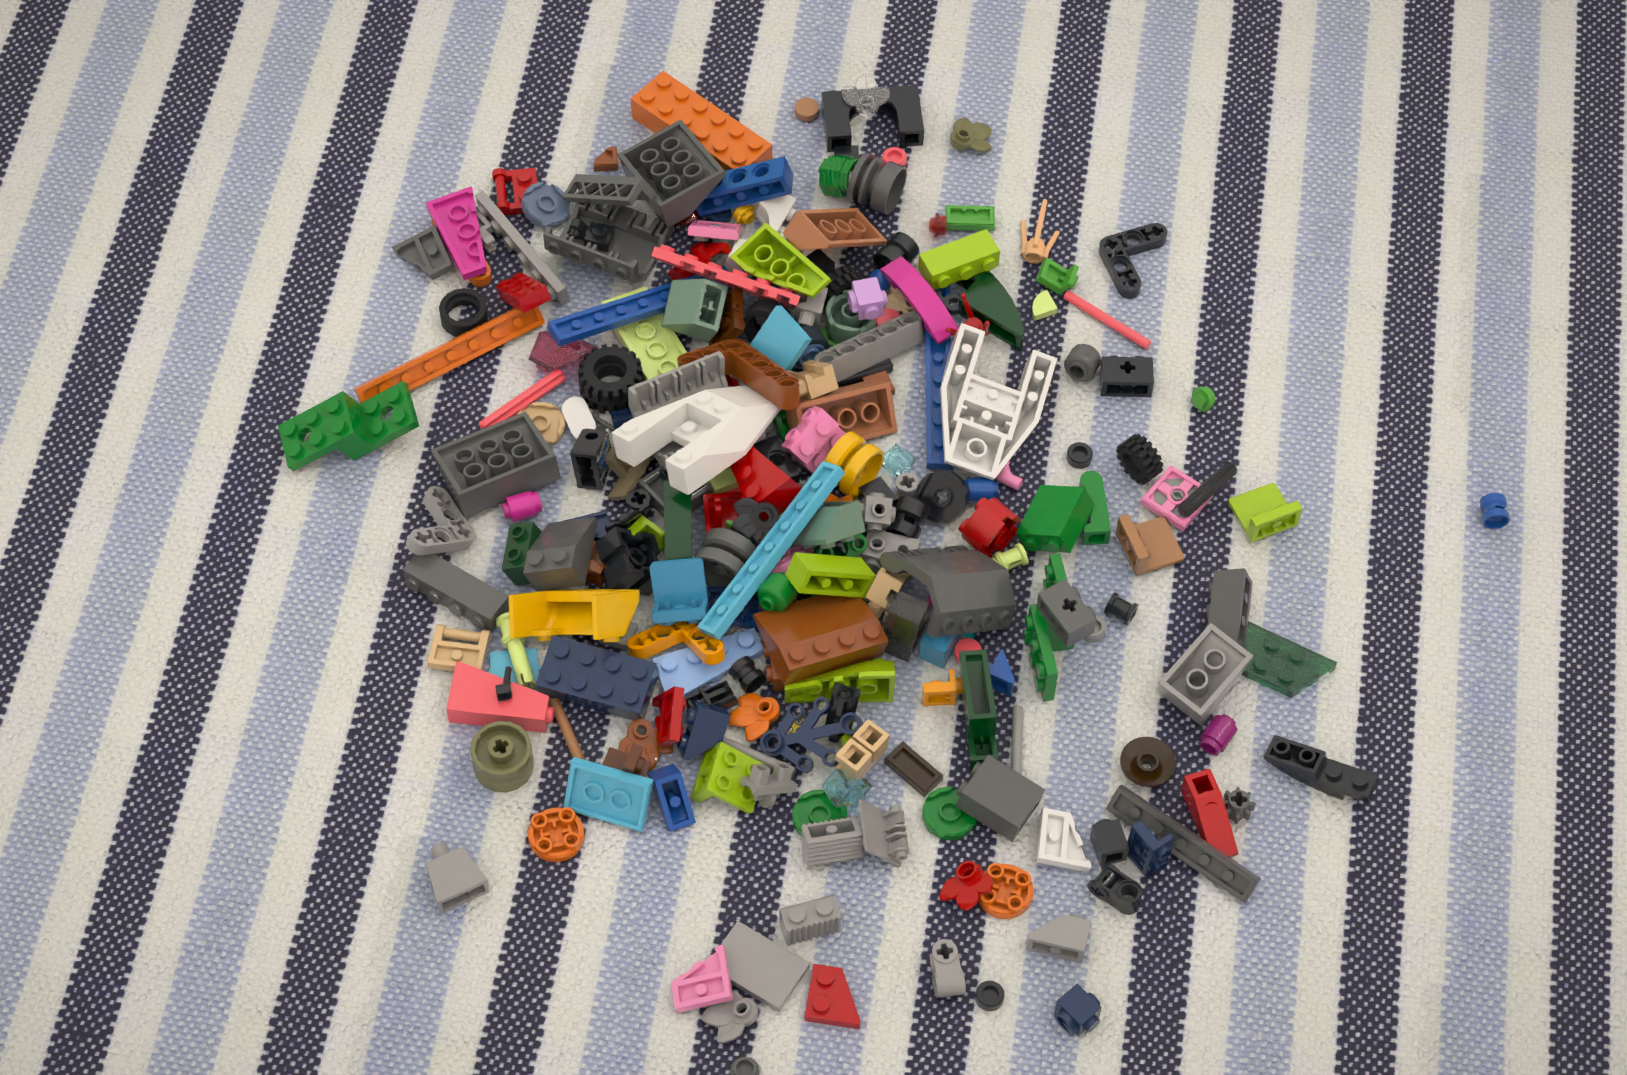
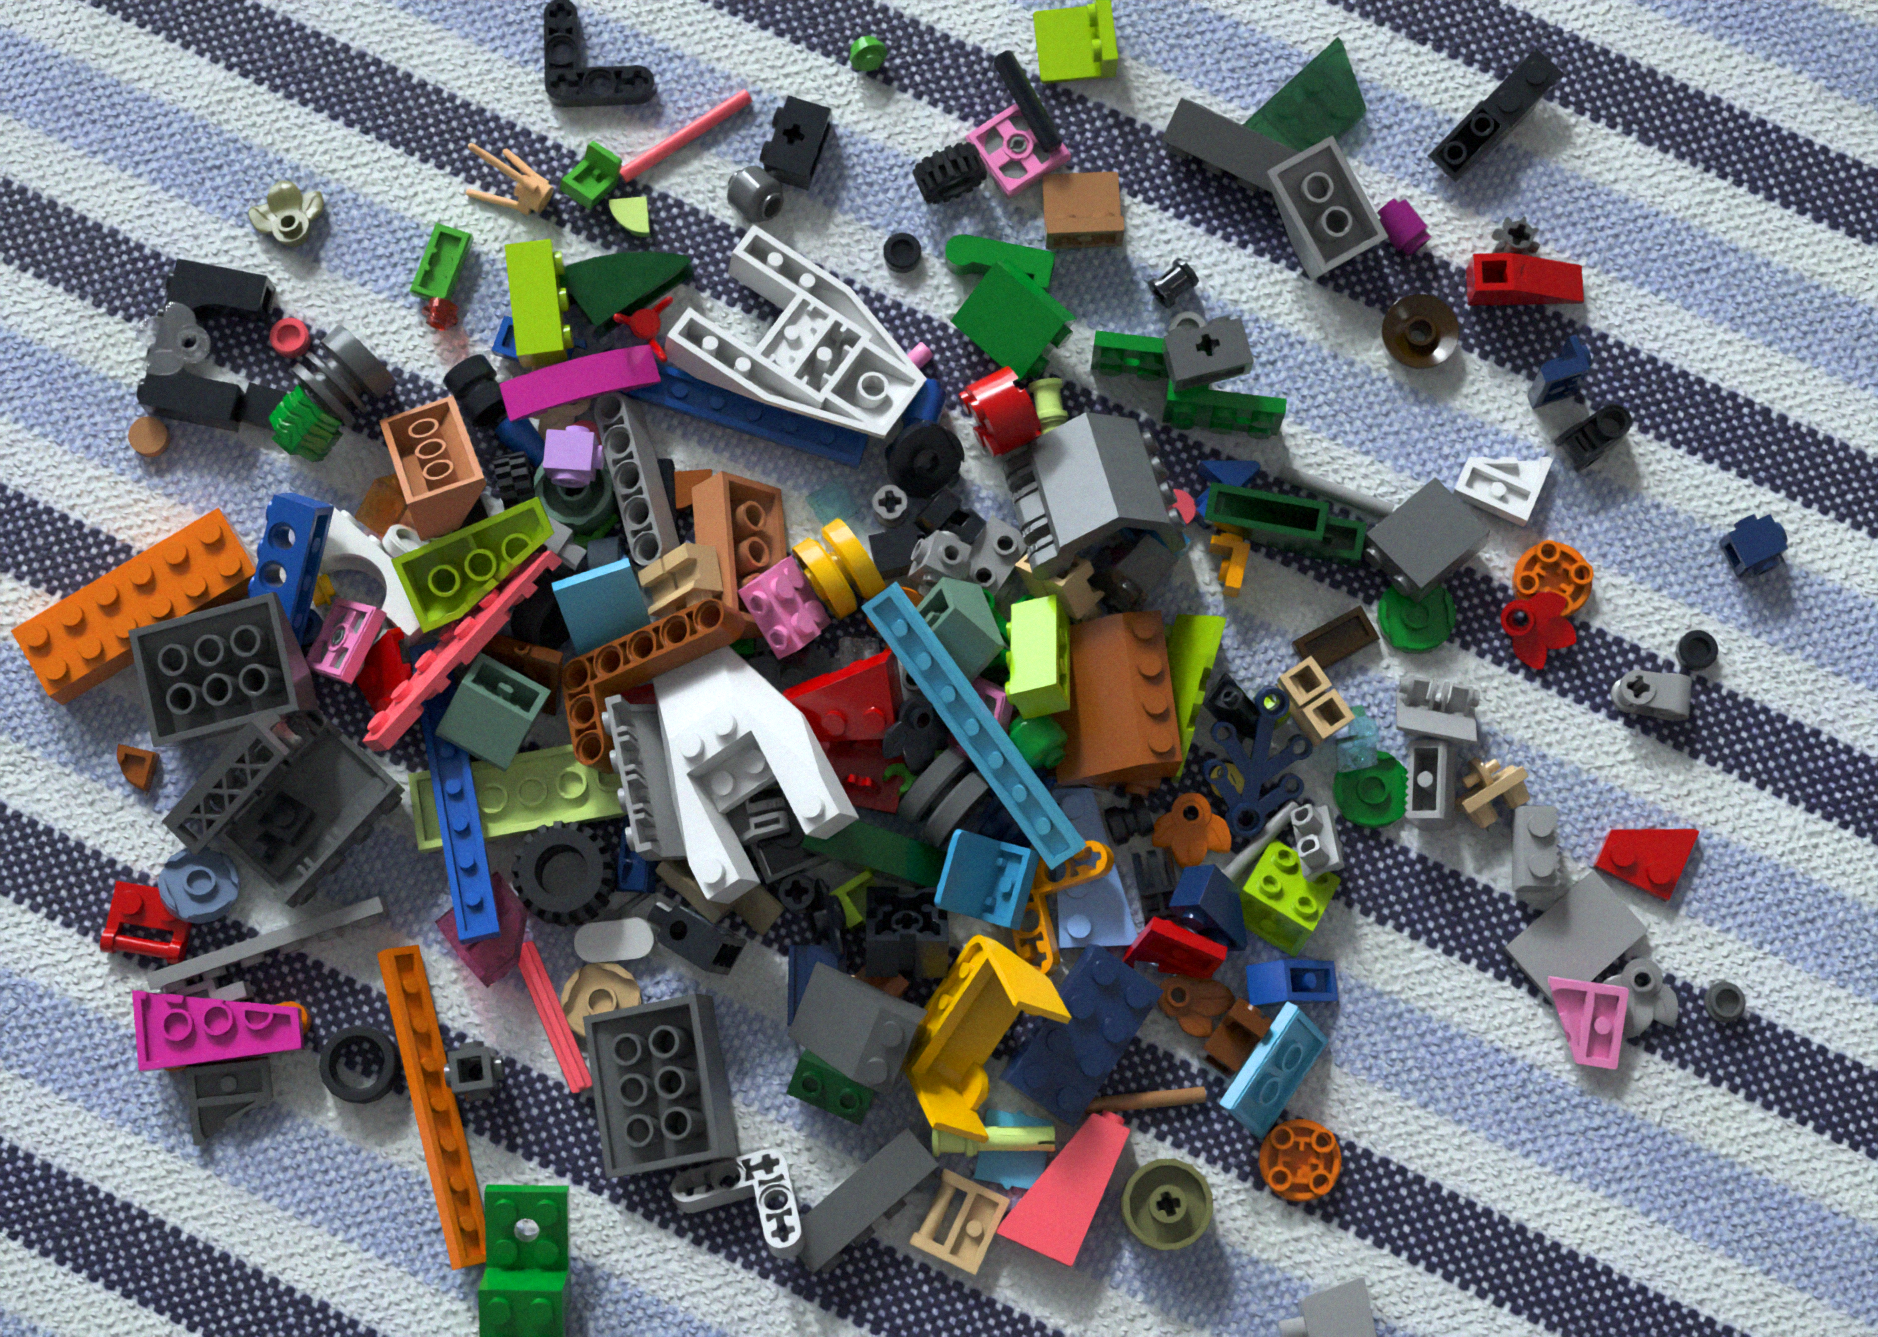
camera: 70 degrees left, 20 degrees up
(475, 365) = (460, 1066): none -> dark grey brick
(504, 690) = (1073, 1174): black hand -> none
(522, 506) = (745, 1066): dark pink brick -> none
(523, 292) = (365, 963): red piece -> none
(850, 892) = (1505, 783): none -> tan hips
(1061, 938) = (1646, 527): light grey slope -> none
(1109, 841) = (1523, 422): black brick -> none
(1186, 845) = (1550, 330): dark grey tile -> none

